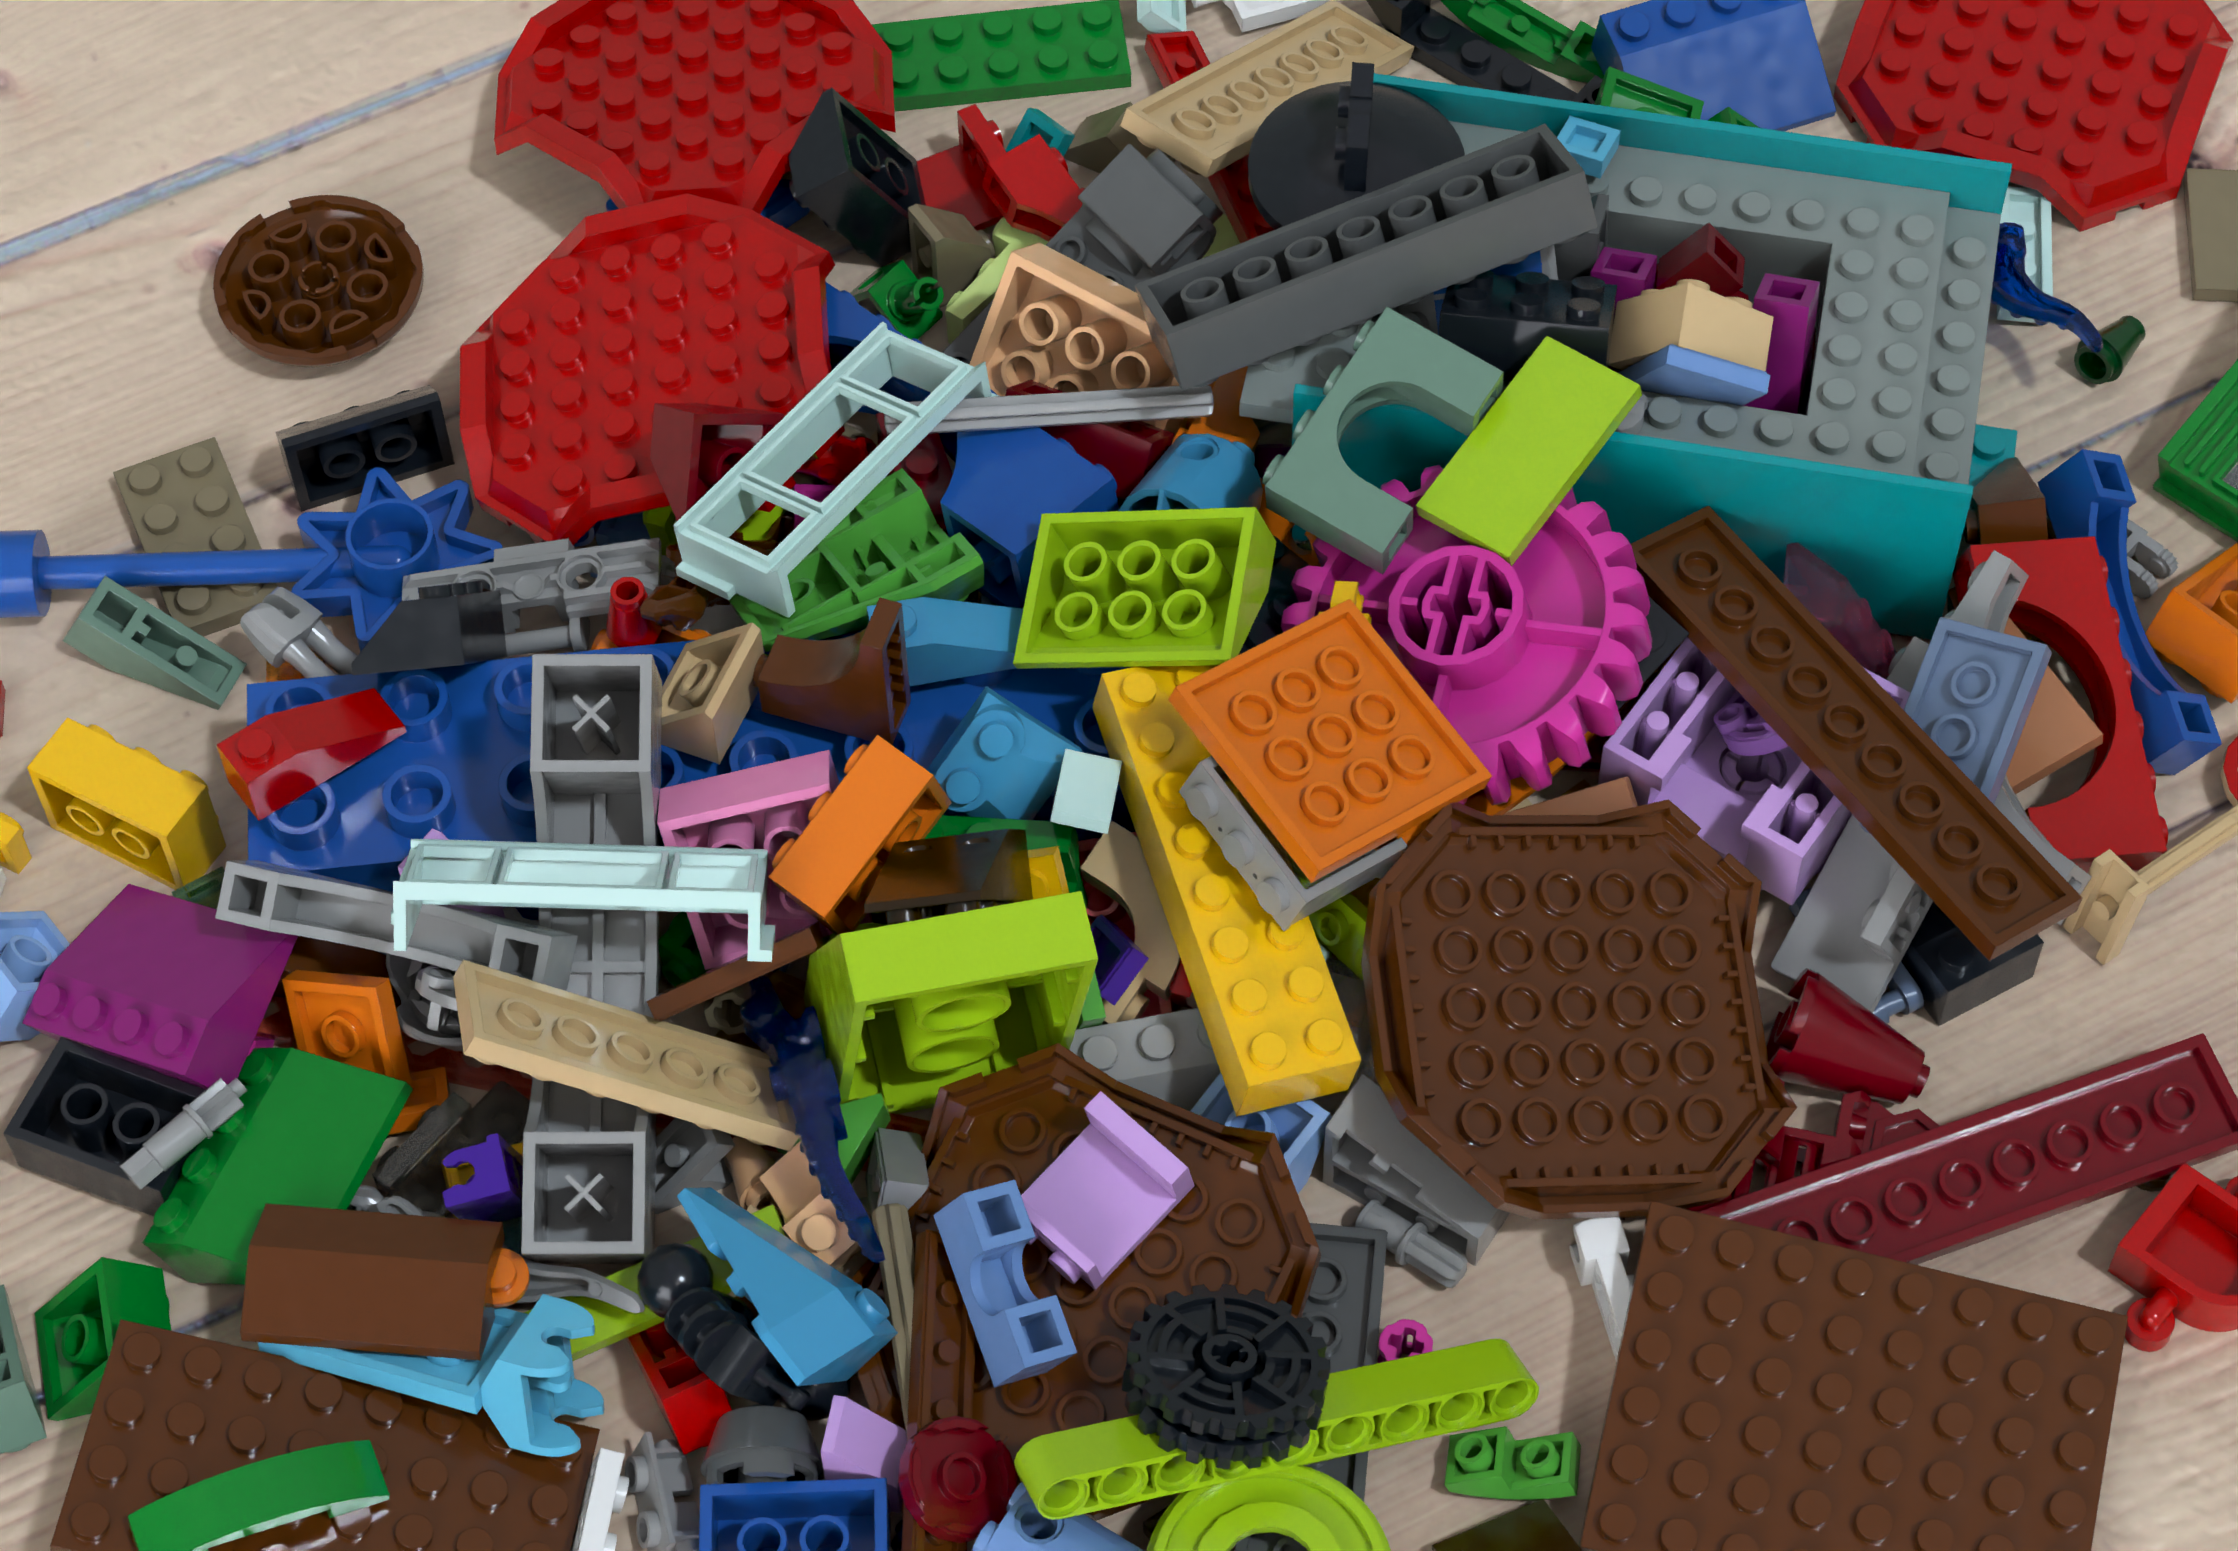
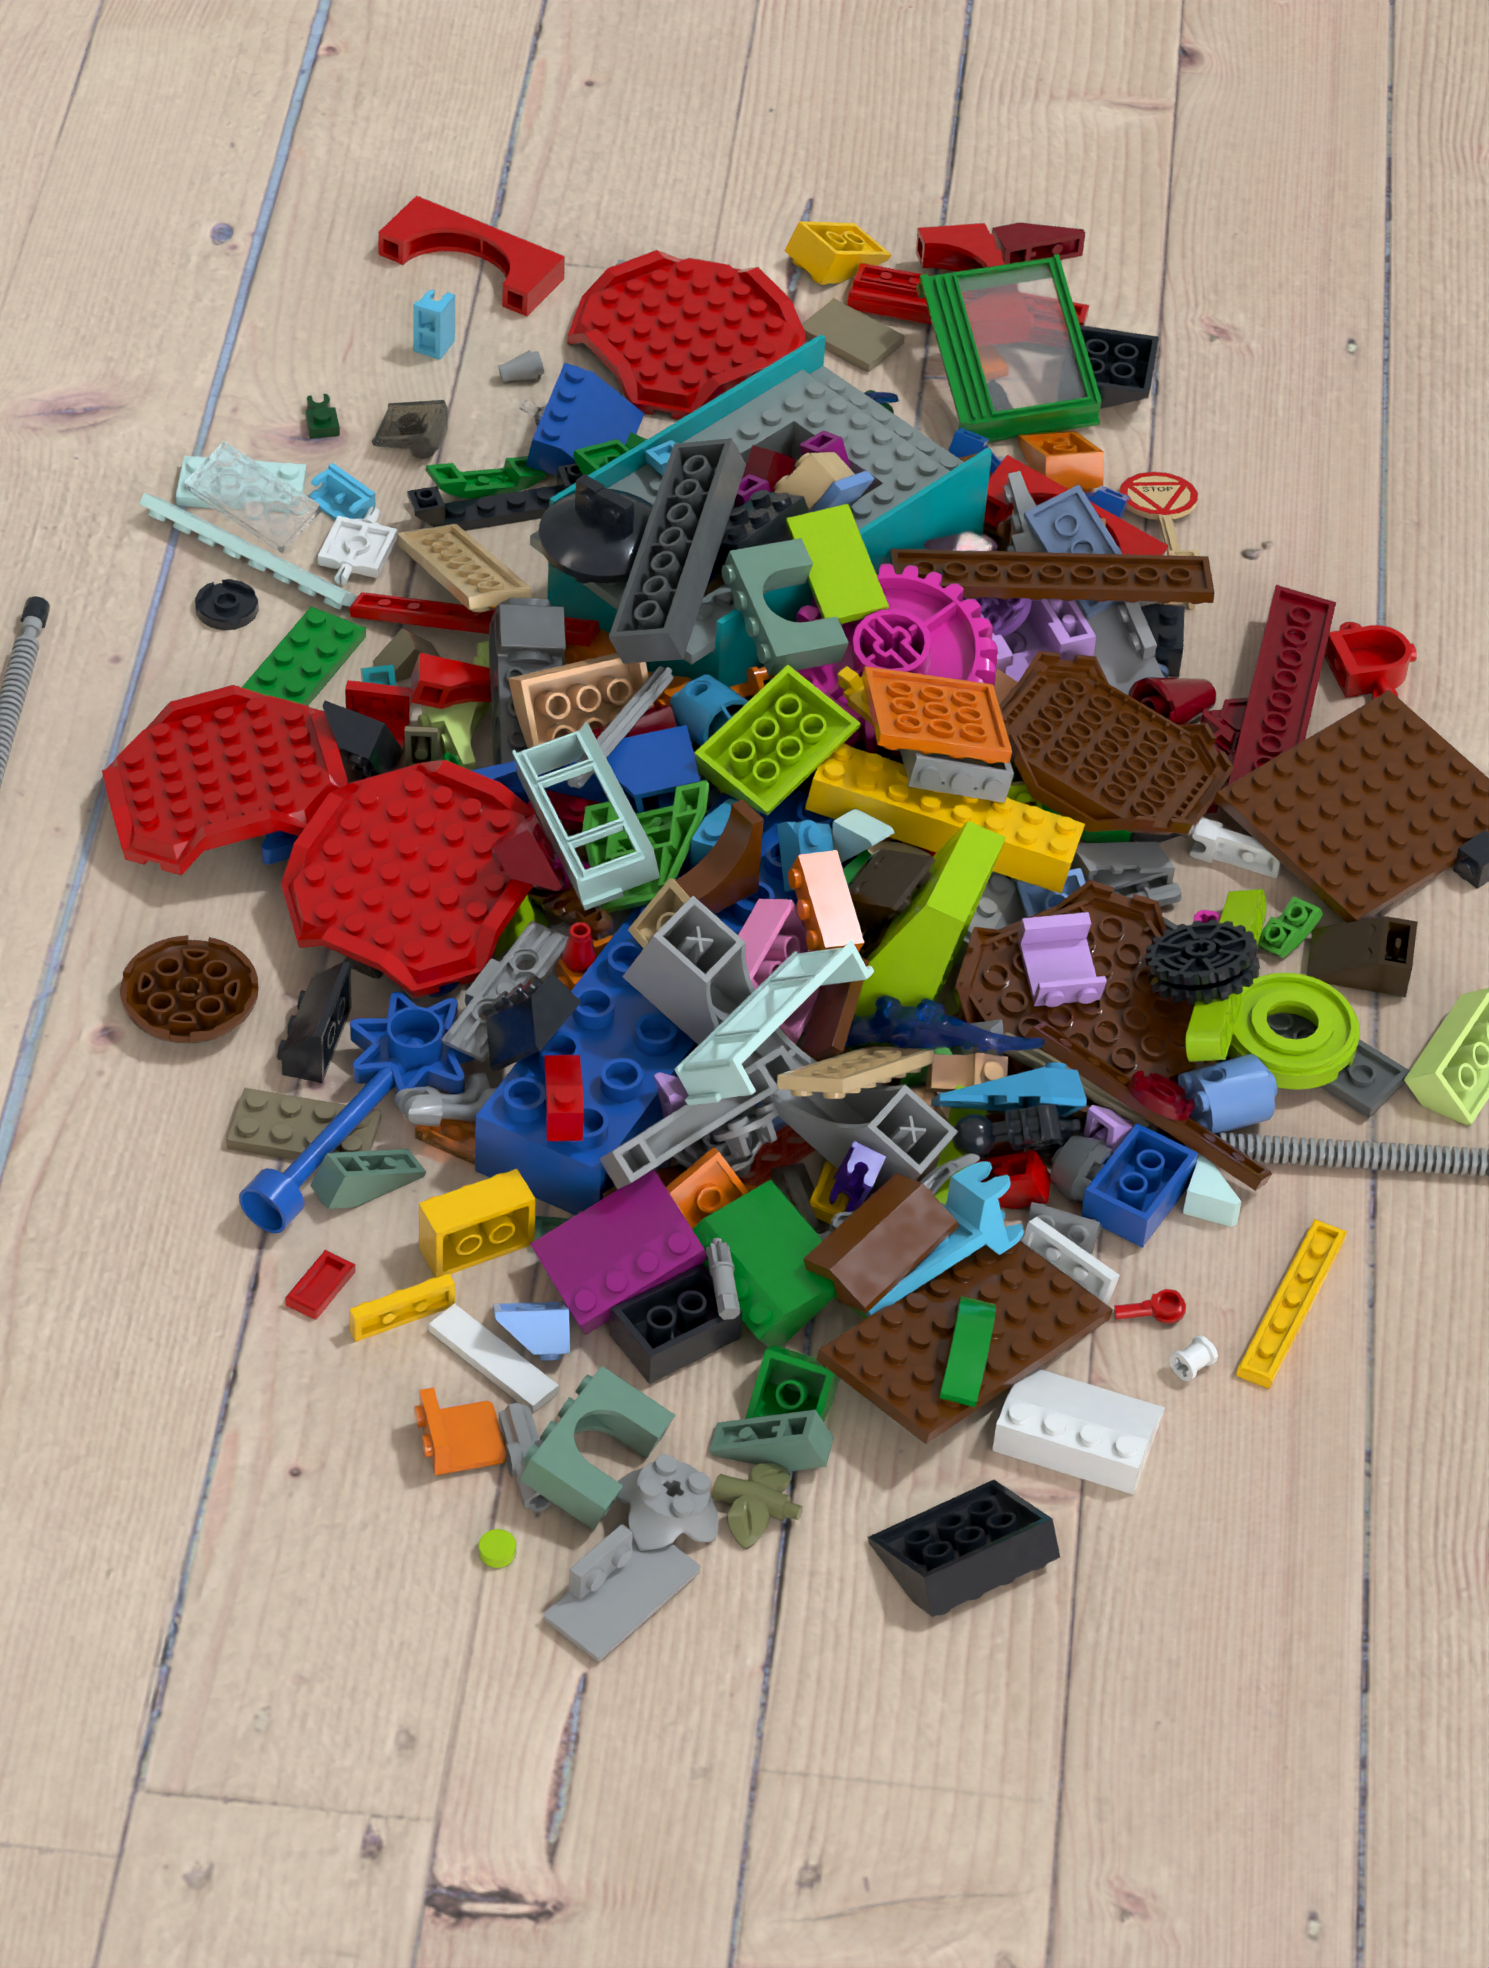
camera: 60 degrees left, 10 degrees down
(985, 1247) = (1108, 1030): medium blue arch -> none

